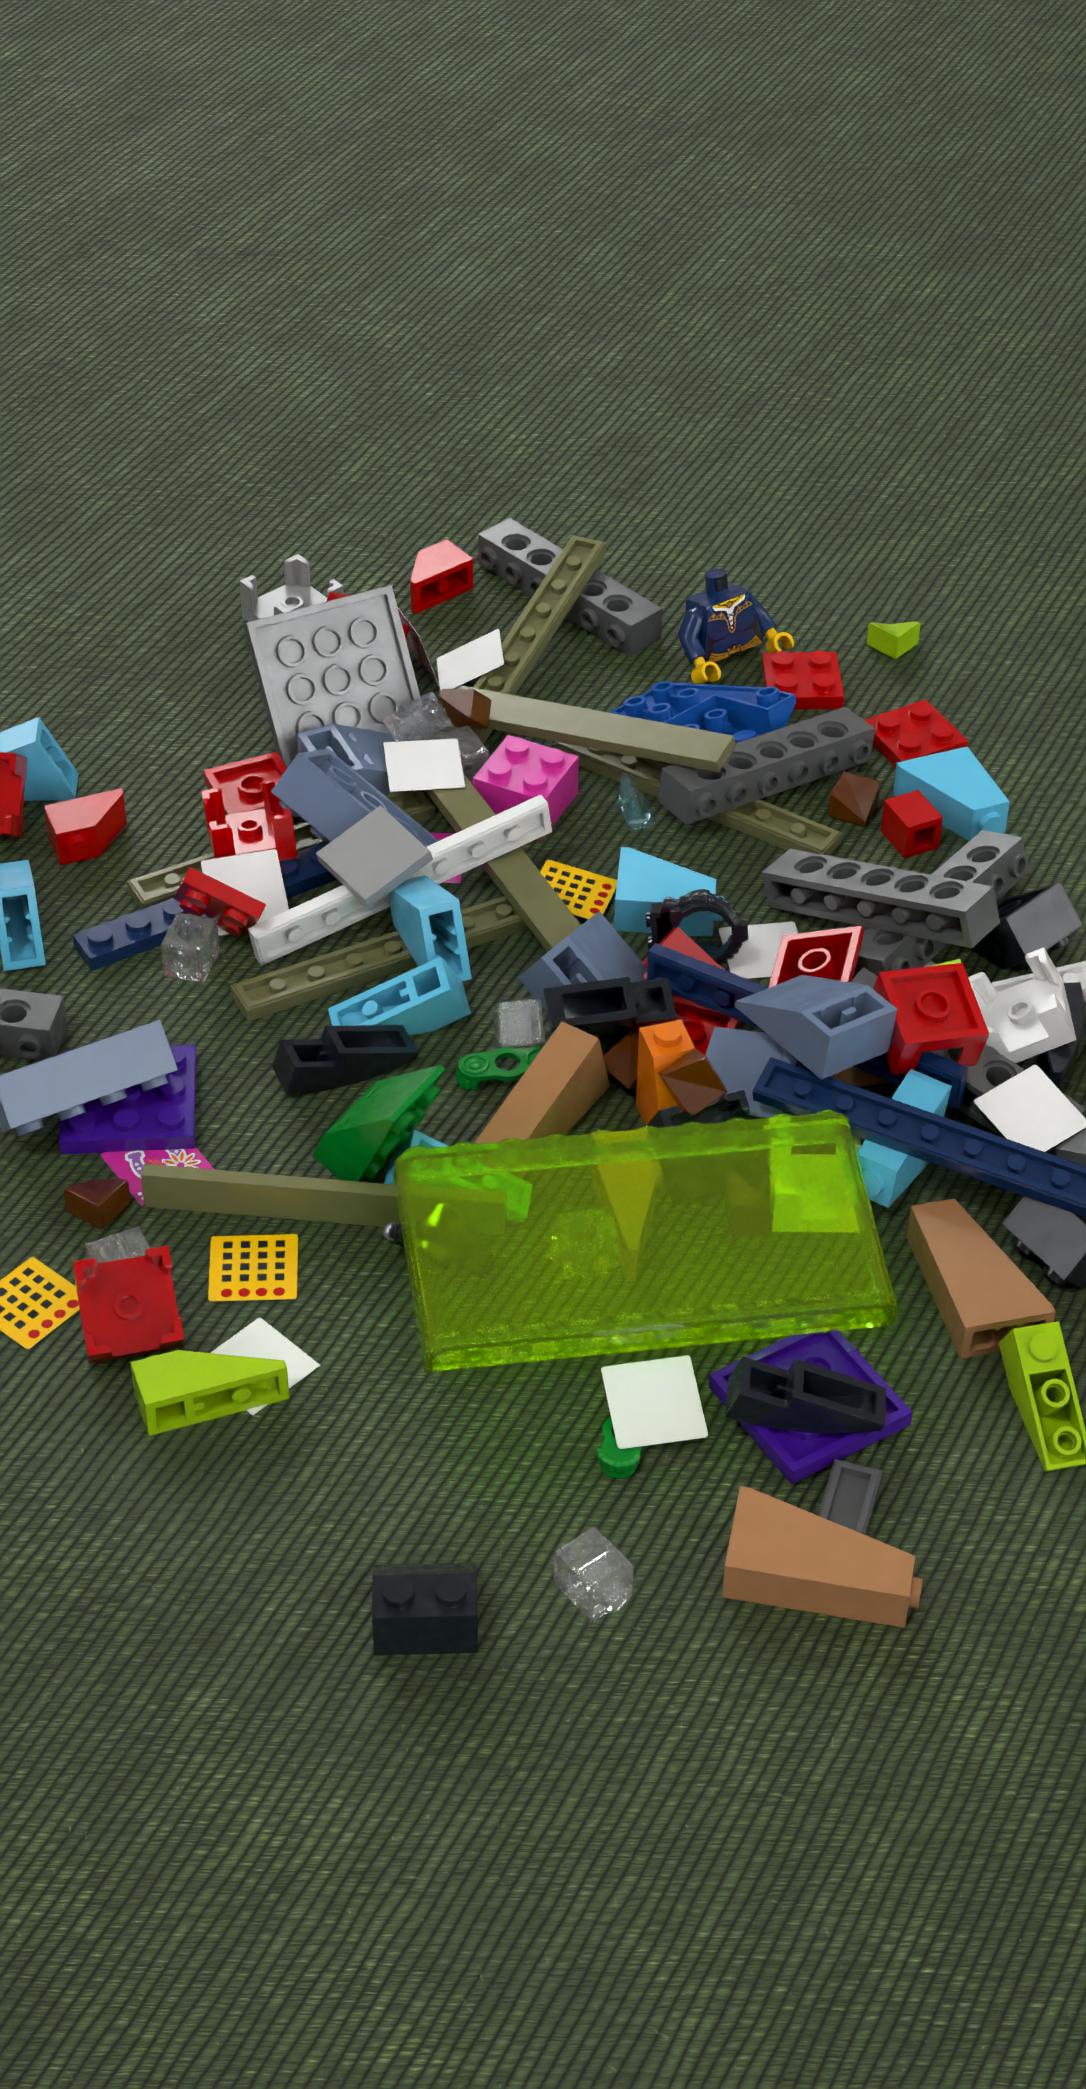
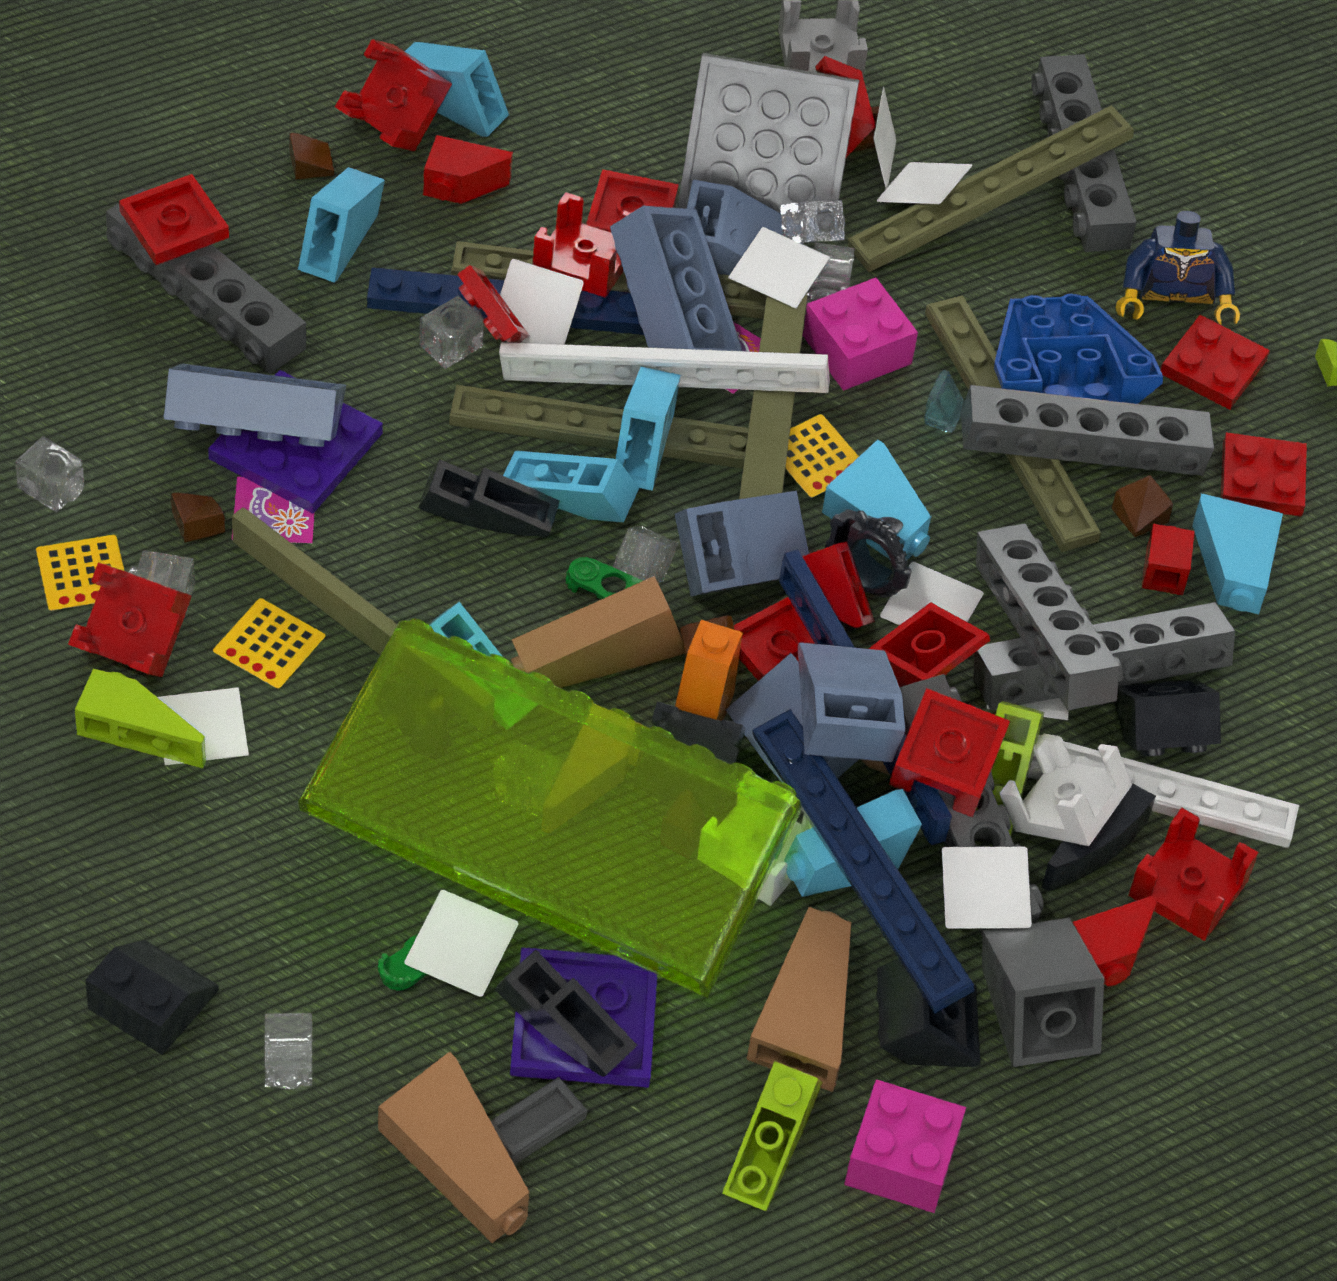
camera: 30 degrees right, 10 degrees up
(374, 856) = (642, 335): light grey tile -> none
(378, 1124) = (441, 580): green slope -> none
(440, 575) = (974, 80): red slope -> none
(466, 707) = (862, 232): reddish brown slope -> none
(608, 731) = (949, 311): tile -> none
(610, 1005) = (717, 585): black slope -> none
(693, 1082) = (709, 693): reddish brown slope -> none

